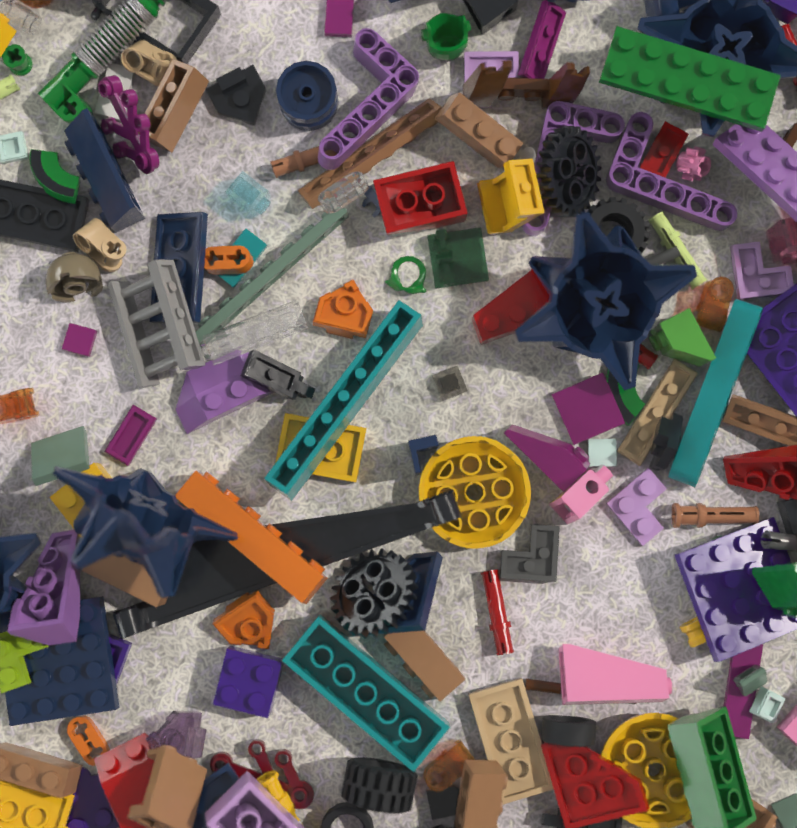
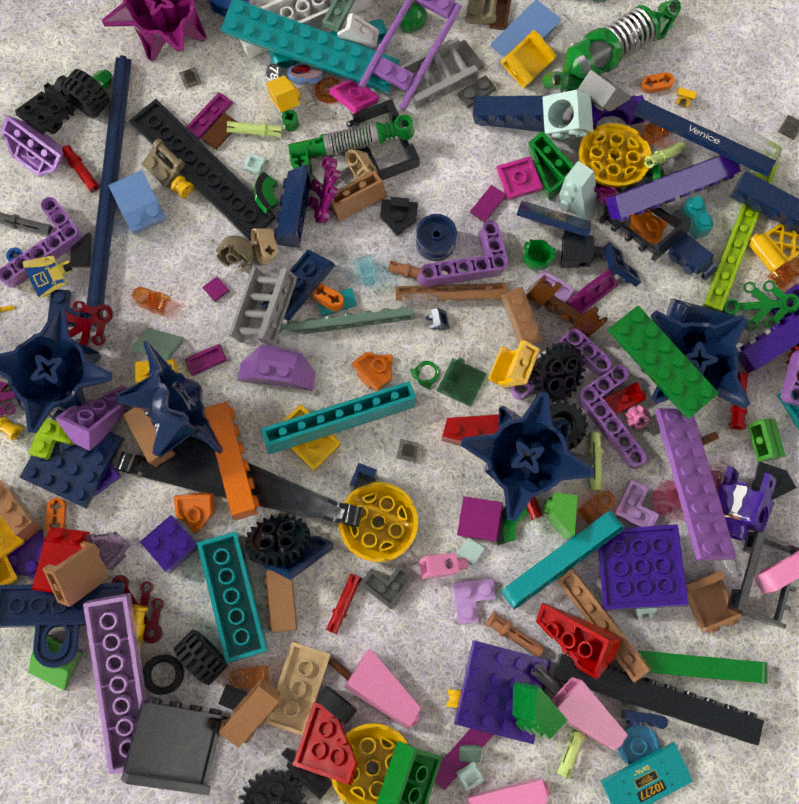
camera: 30 degrees right, 10 degrees down
(275, 376) = (309, 379): black hinge -> none
(421, 199) = (461, 334): red slope -> none
(554, 457) = (439, 533): magenta slope -> none
(660, 404) = (520, 549): tan tile -> none
(666, 441) = (513, 566): black plate -> none

